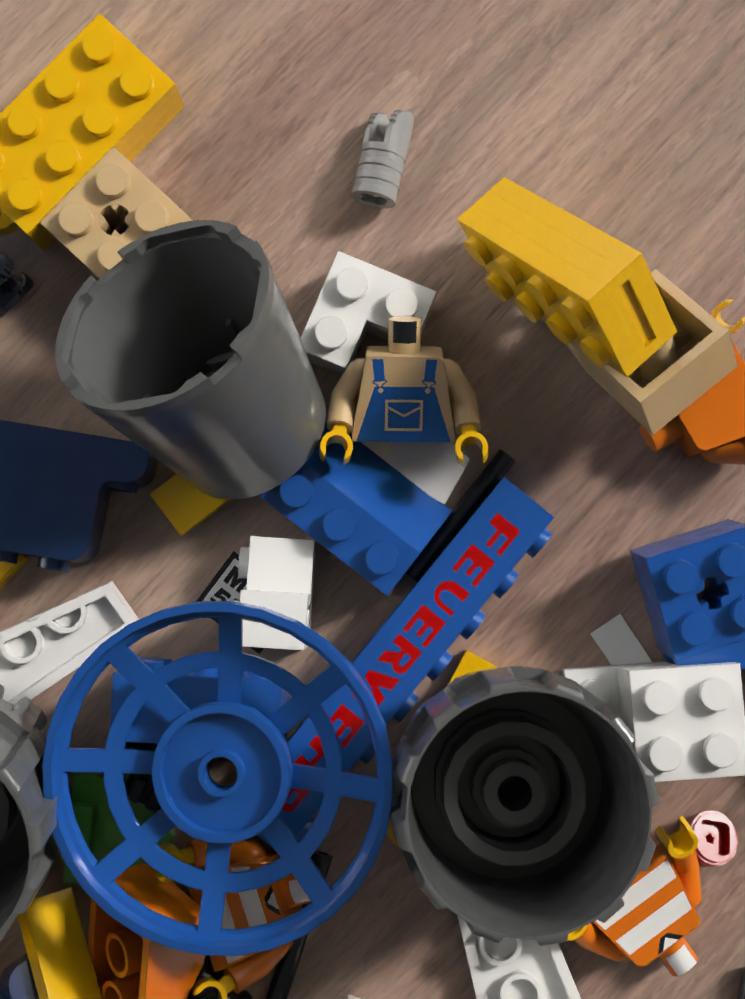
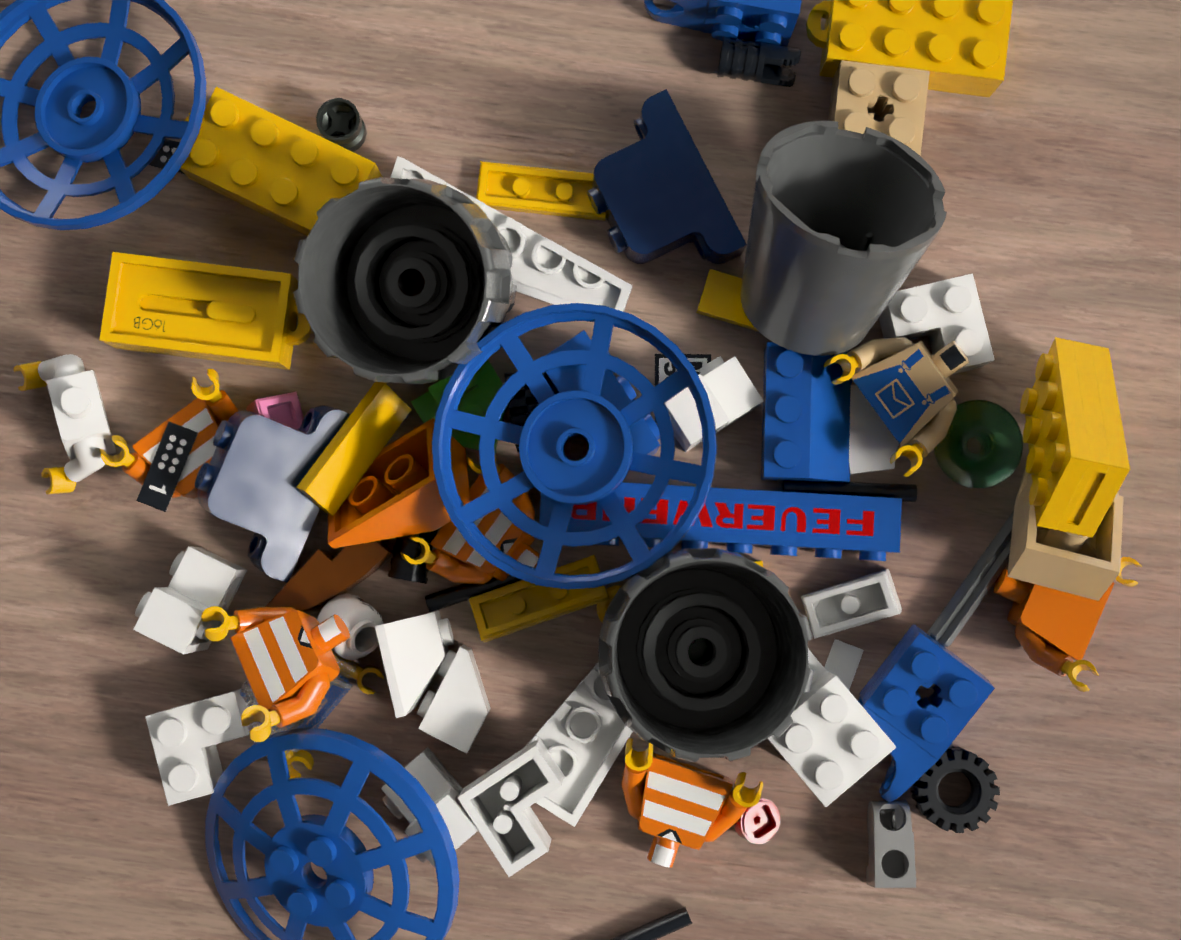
camera: 55 degrees right, 0 degrees up
(337, 942) = (529, 604): none -> yellow tile
(383, 159) = (1056, 258): light grey hinge -> none
(519, 342) = (999, 441): none -> clear green dish
(569, 593) = (851, 603): none -> white slope
(637, 468) = (974, 587): none -> dark grey axle

